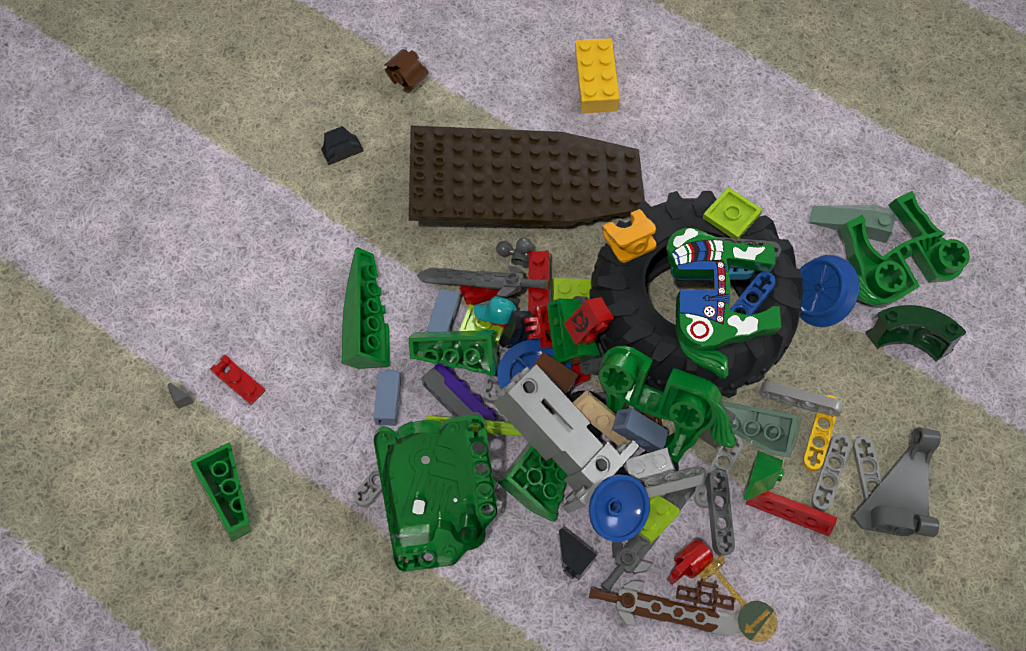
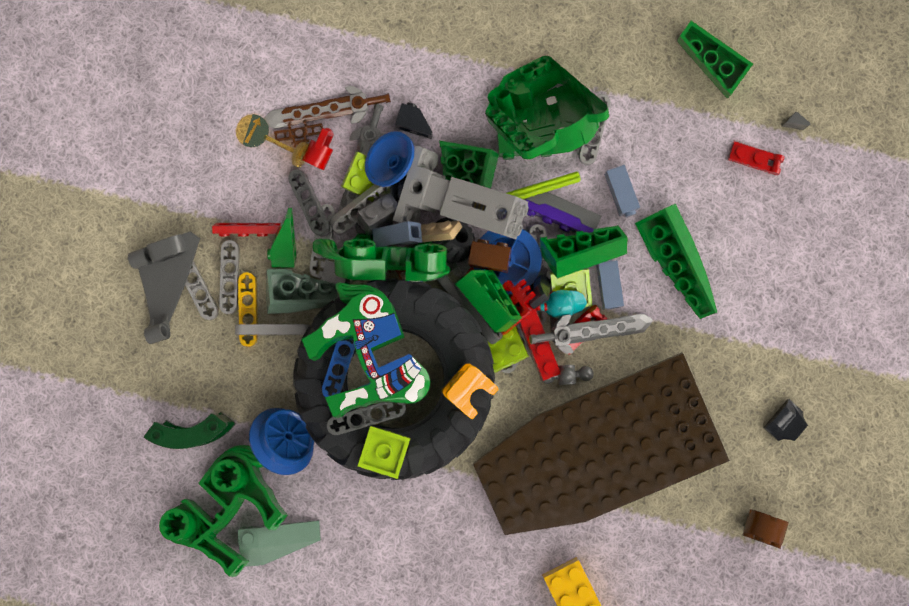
camera: 155 degrees right, 20 degrees up
(589, 321) = (474, 298): red brick -> none

